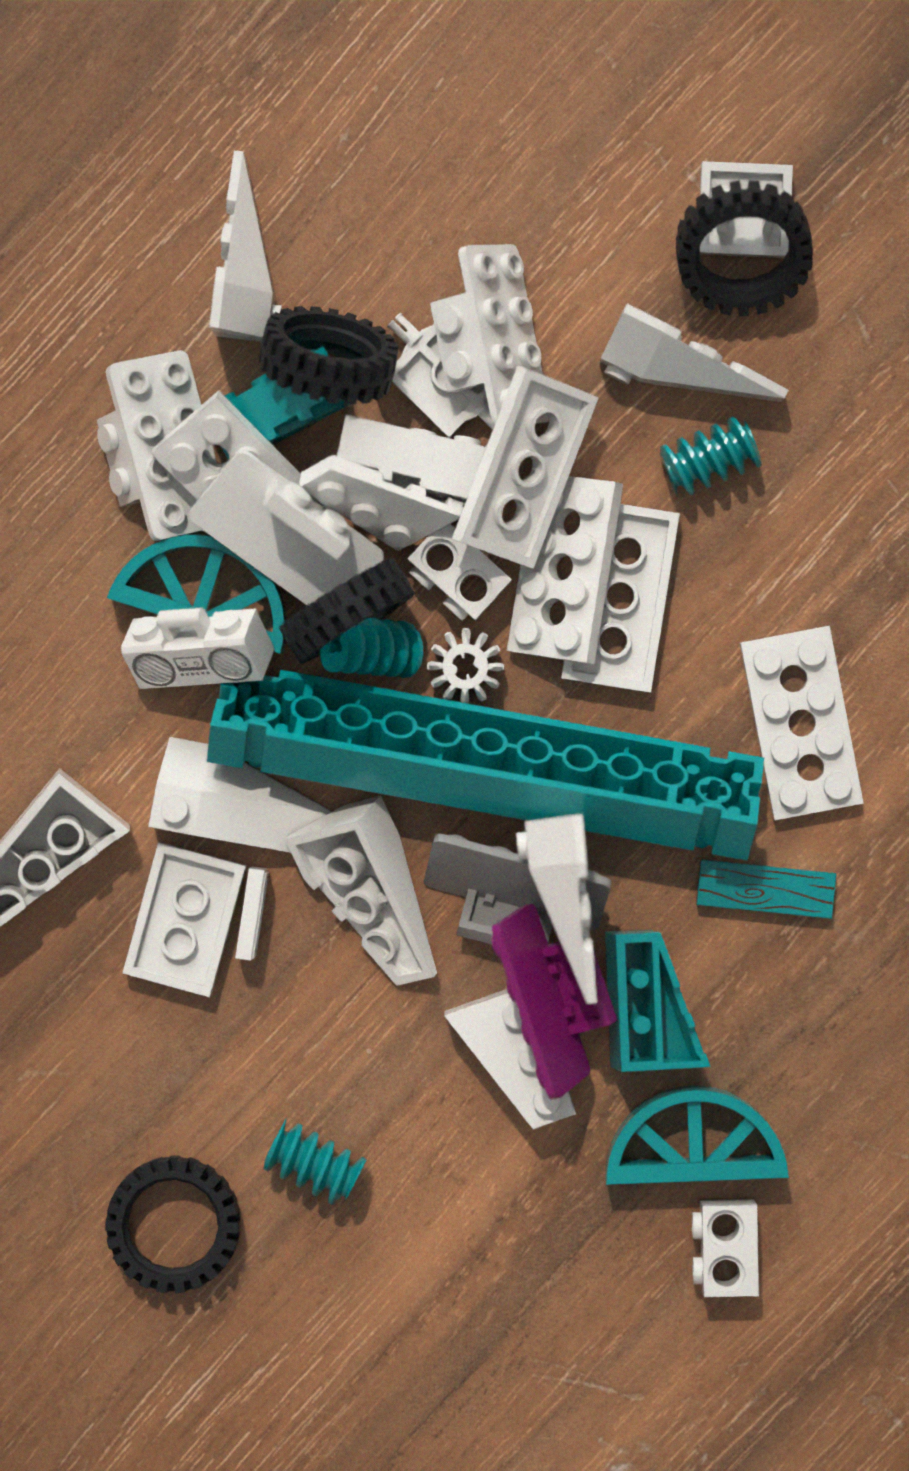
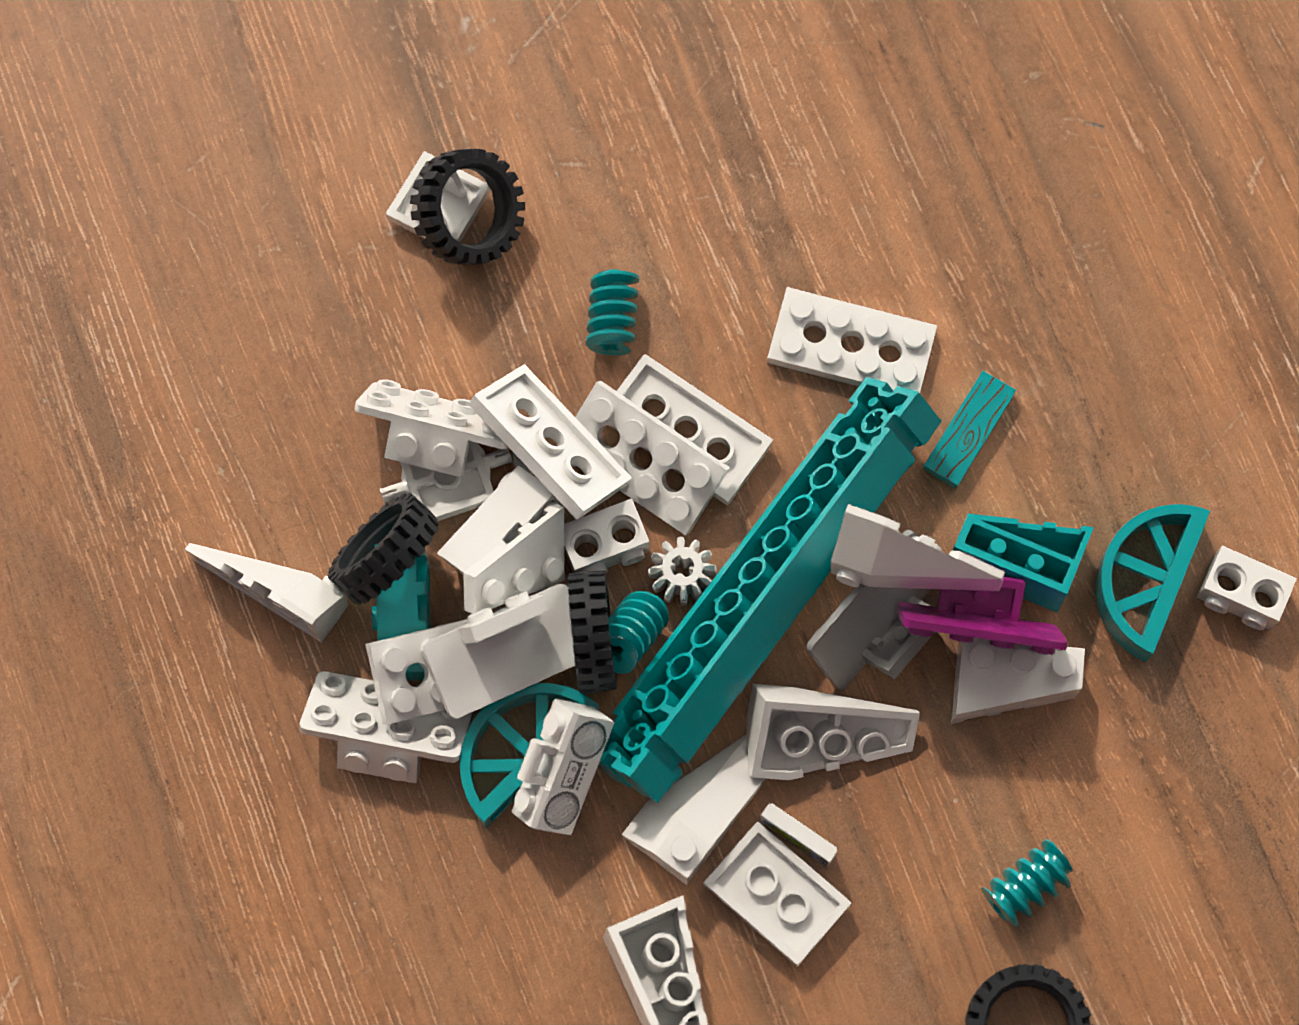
camera: 65 degrees left, 15 degrees down
(654, 354) = (512, 310): white wedge -> none

